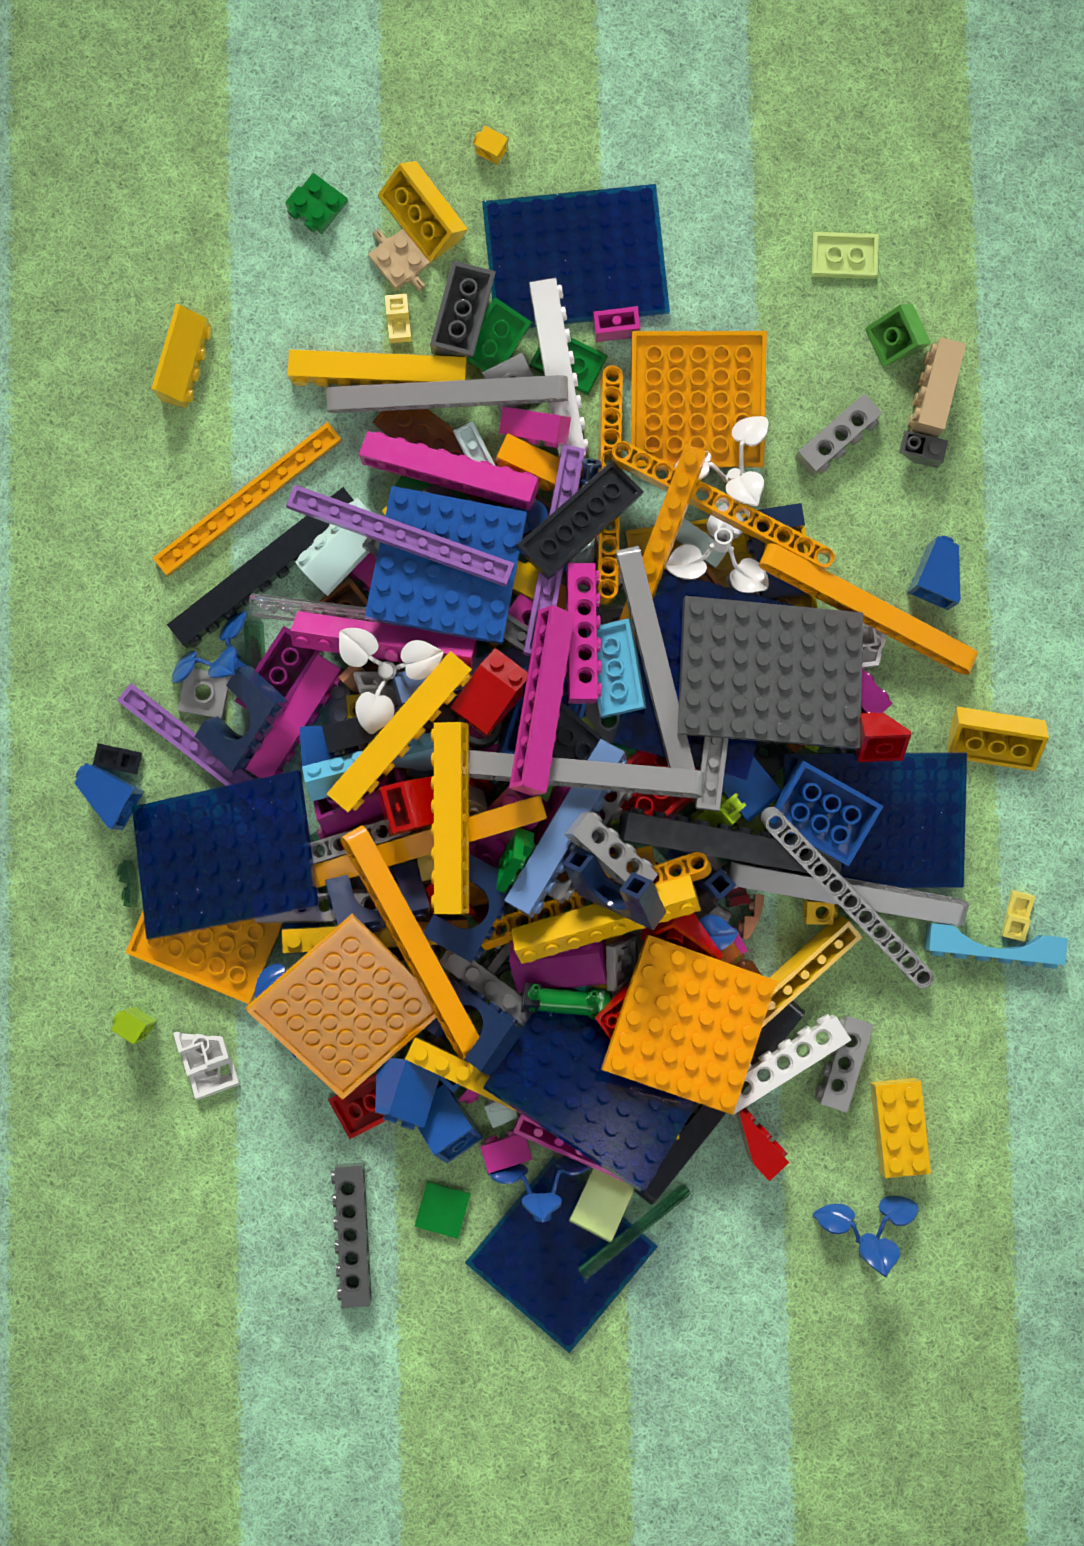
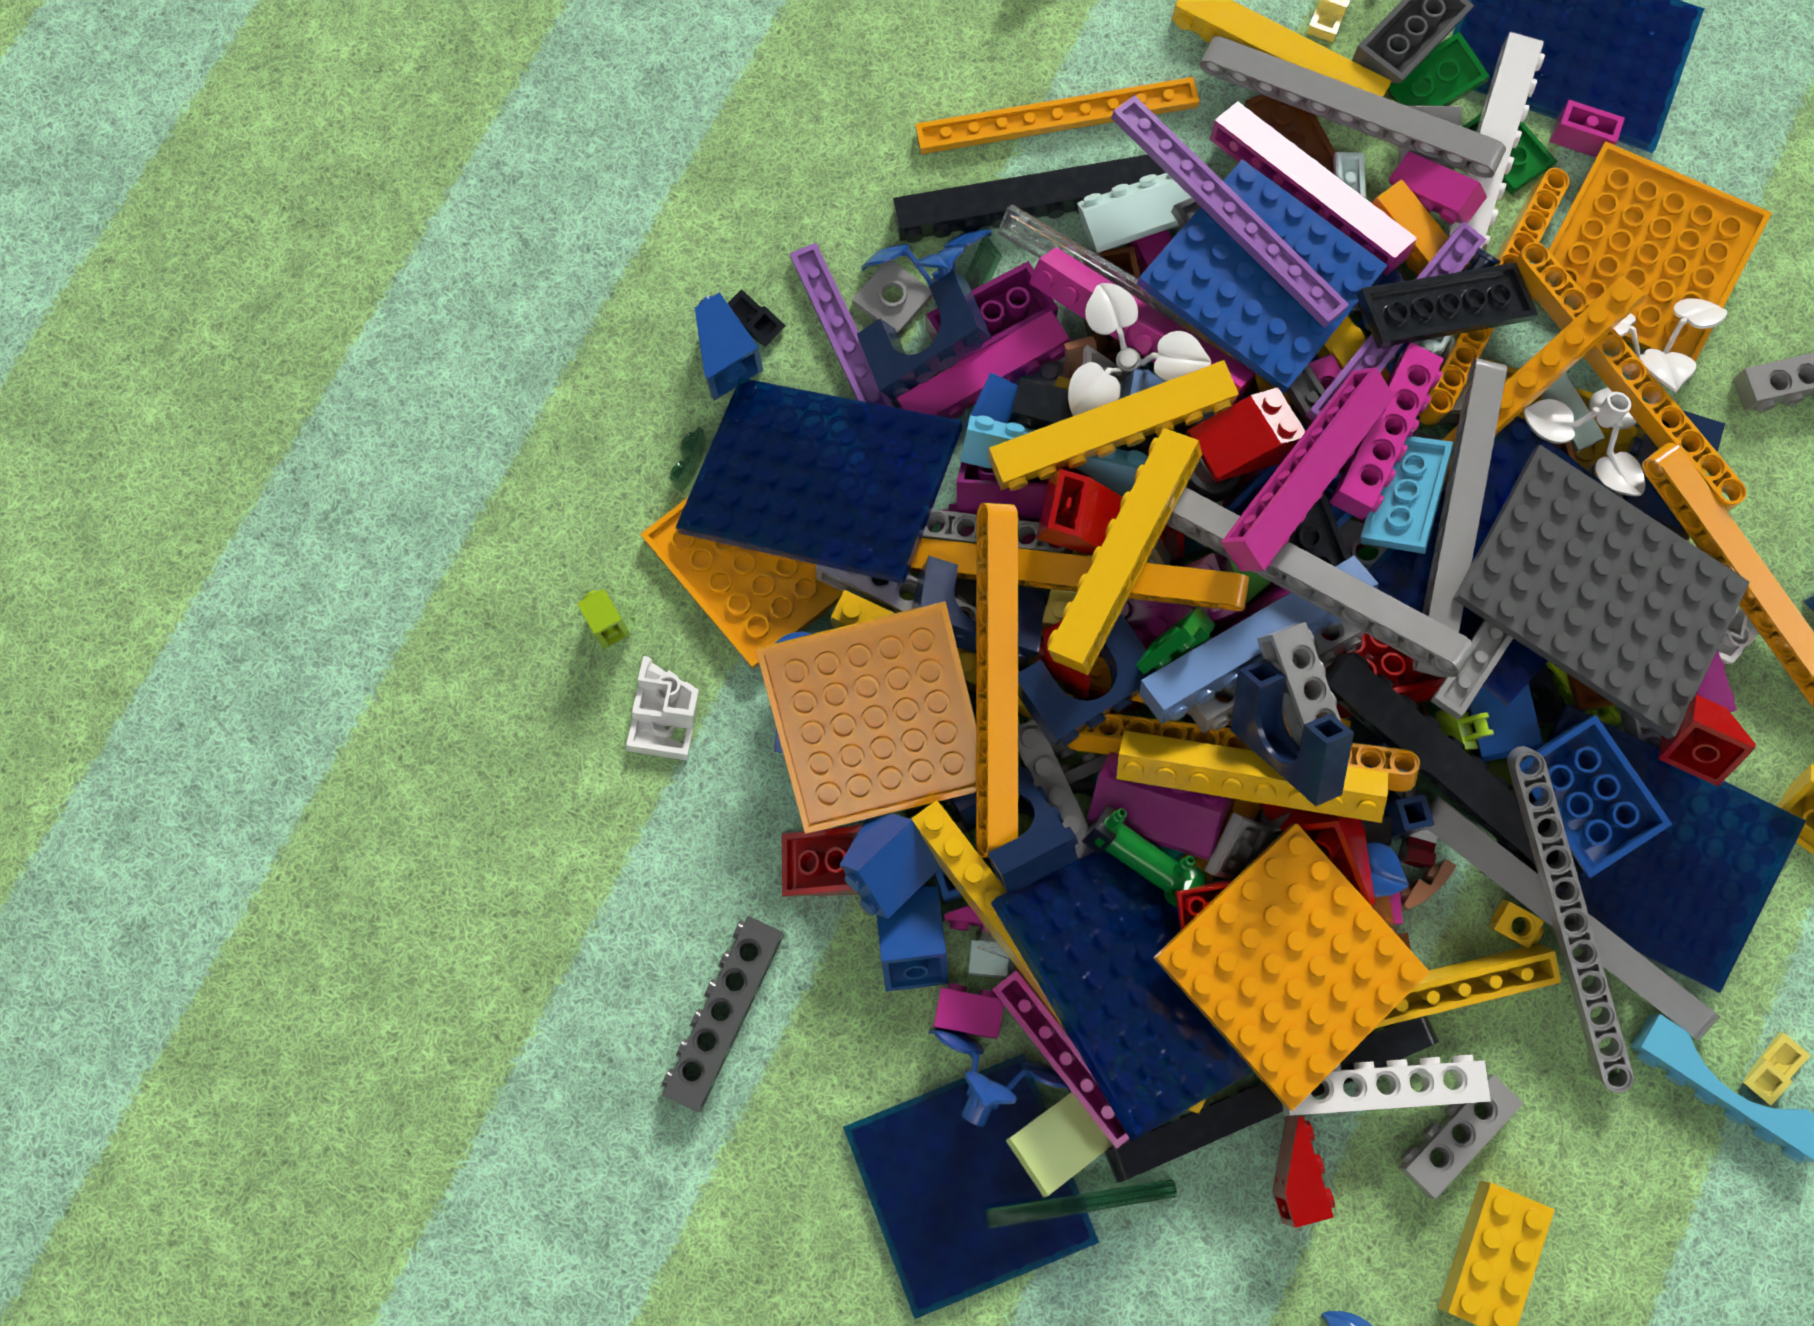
camera: 30 degrees right, 10 degrees down
(442, 1209) = (850, 1045): green tile -> none

